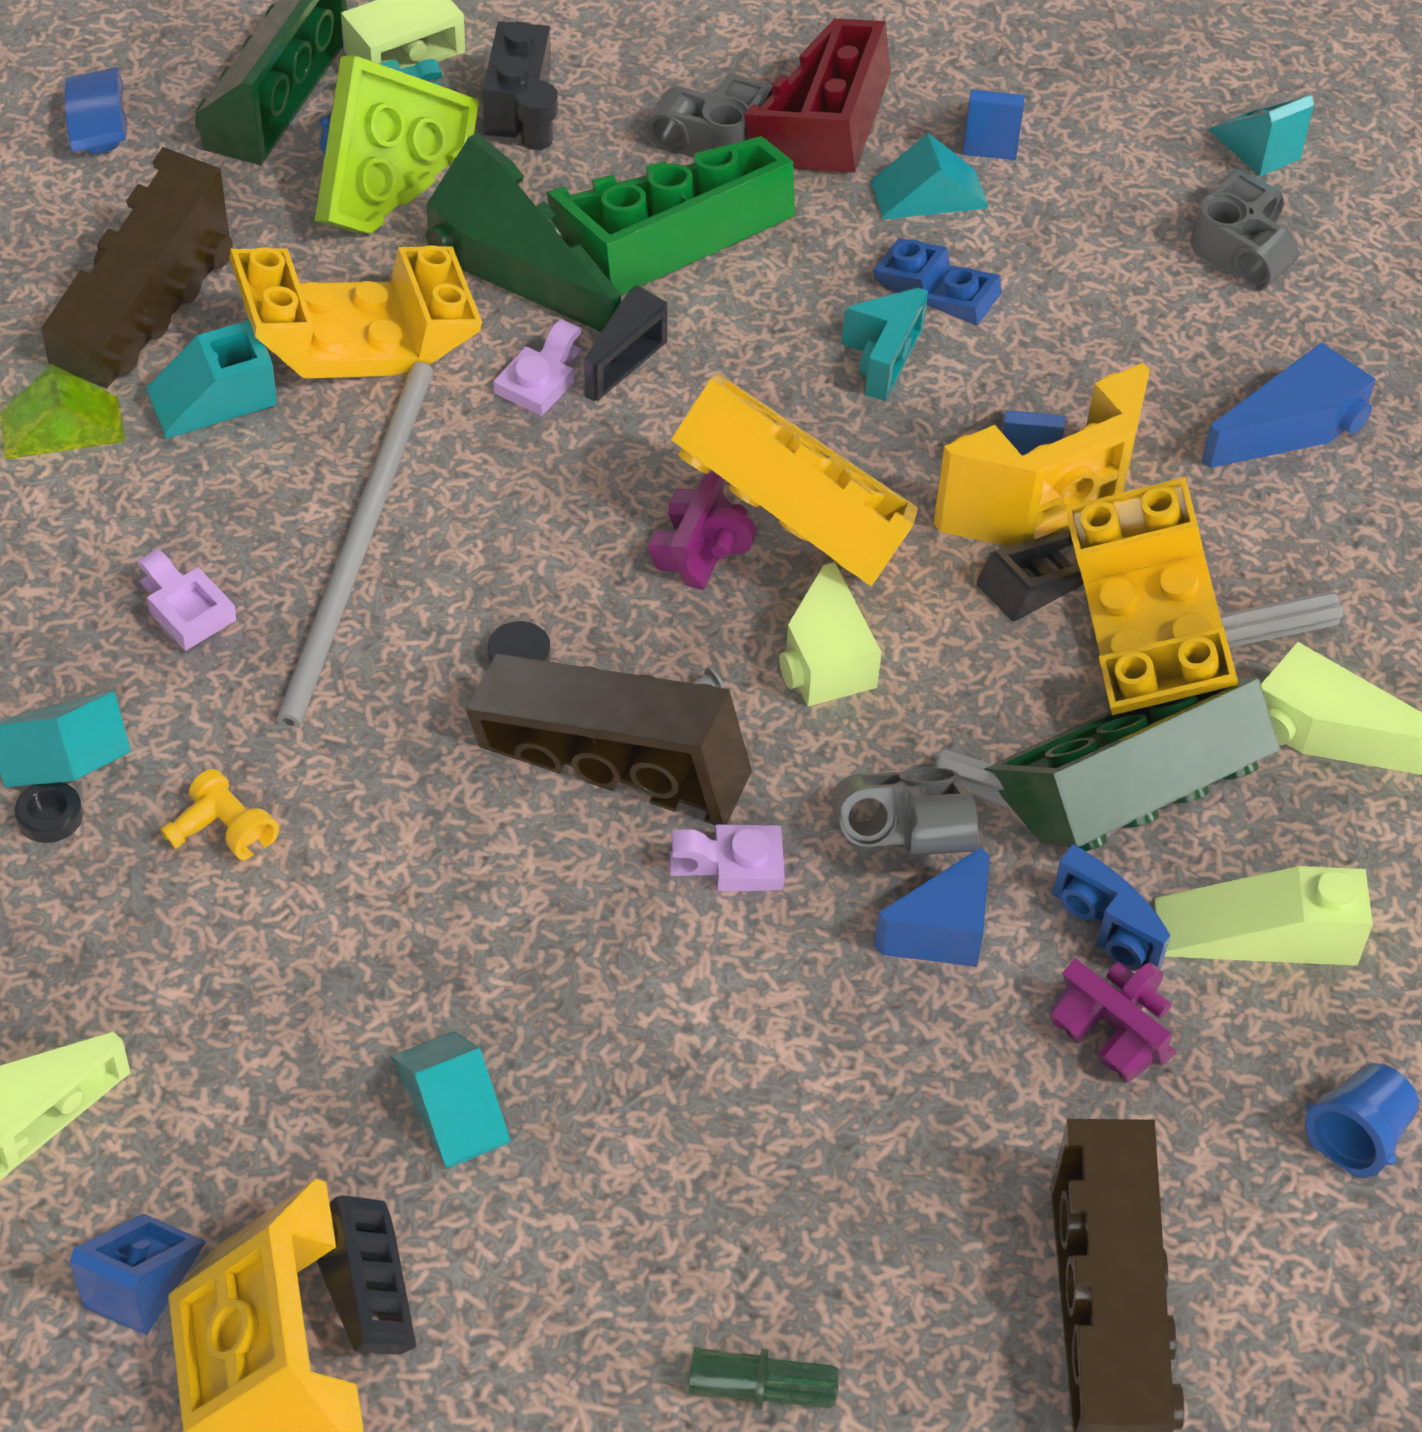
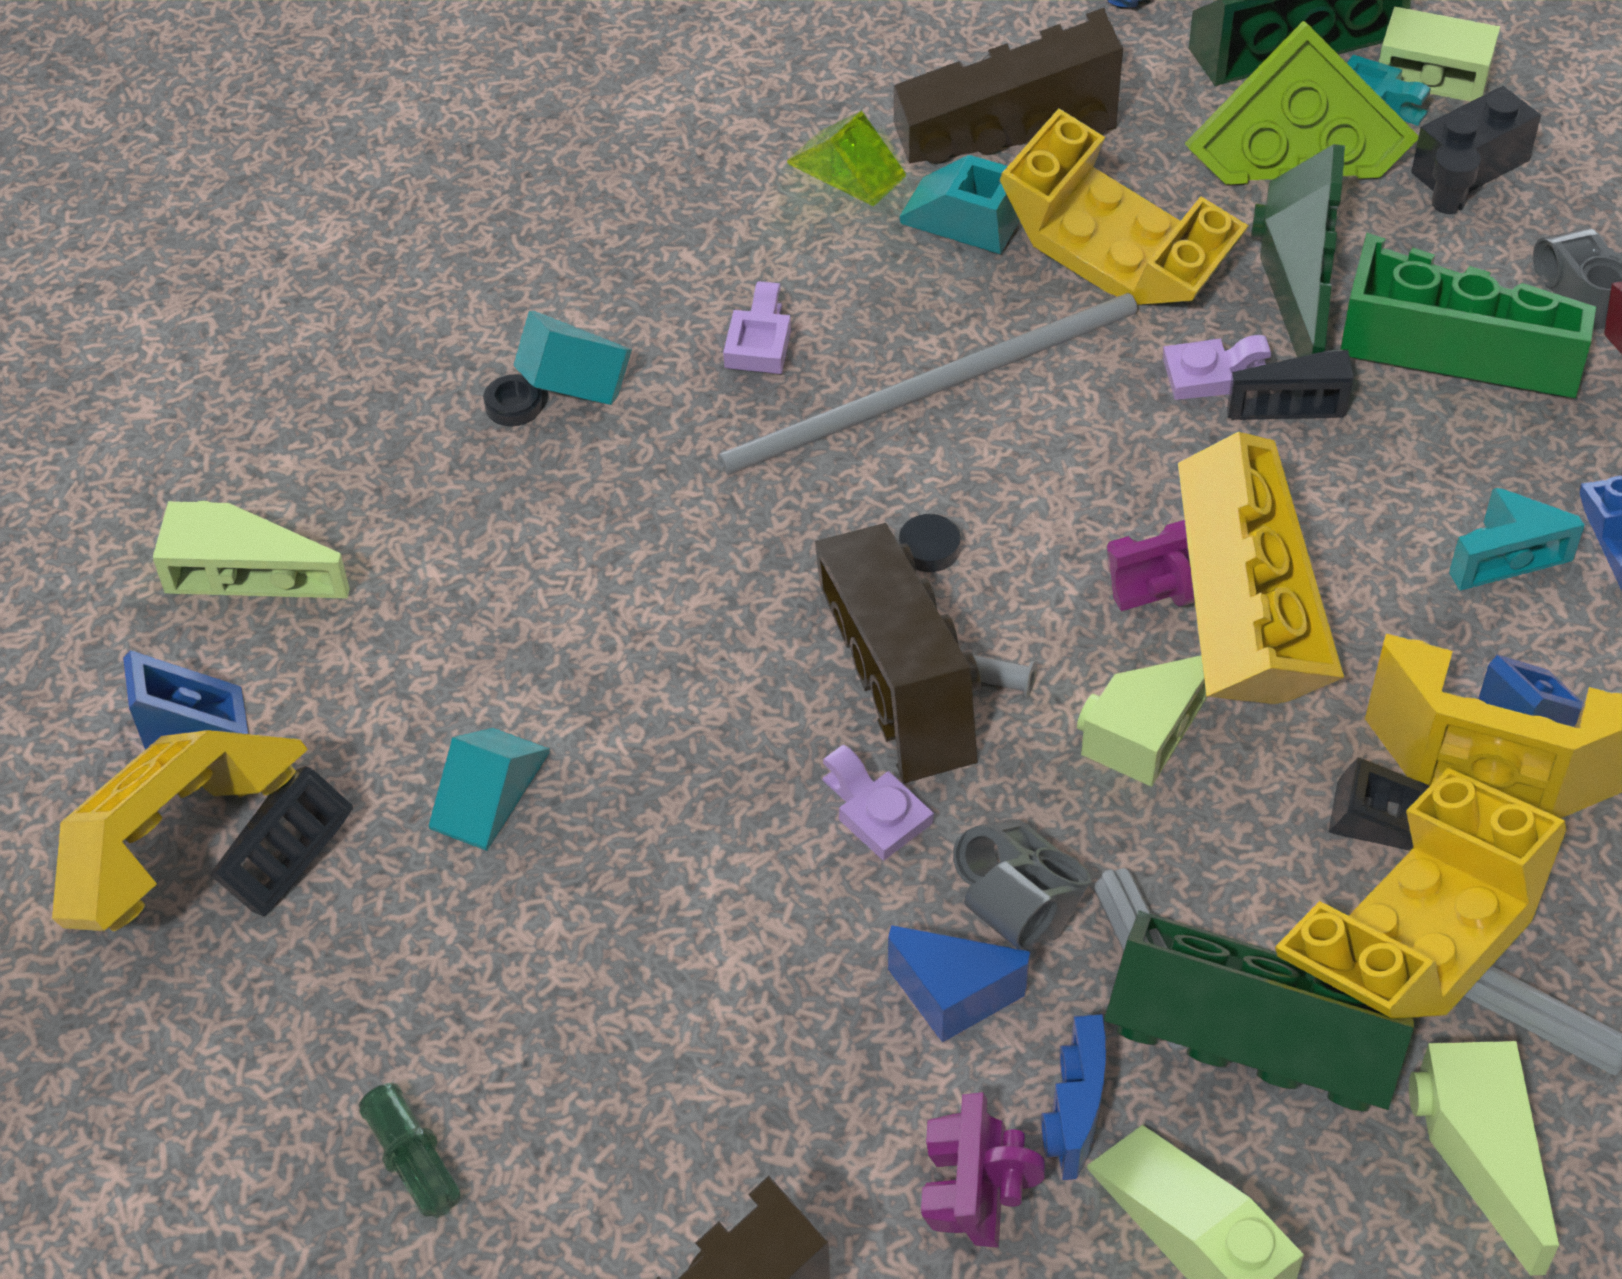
camera: 55 degrees right, 0 degrees up
(215, 801) = (606, 479): yellow piece -> none

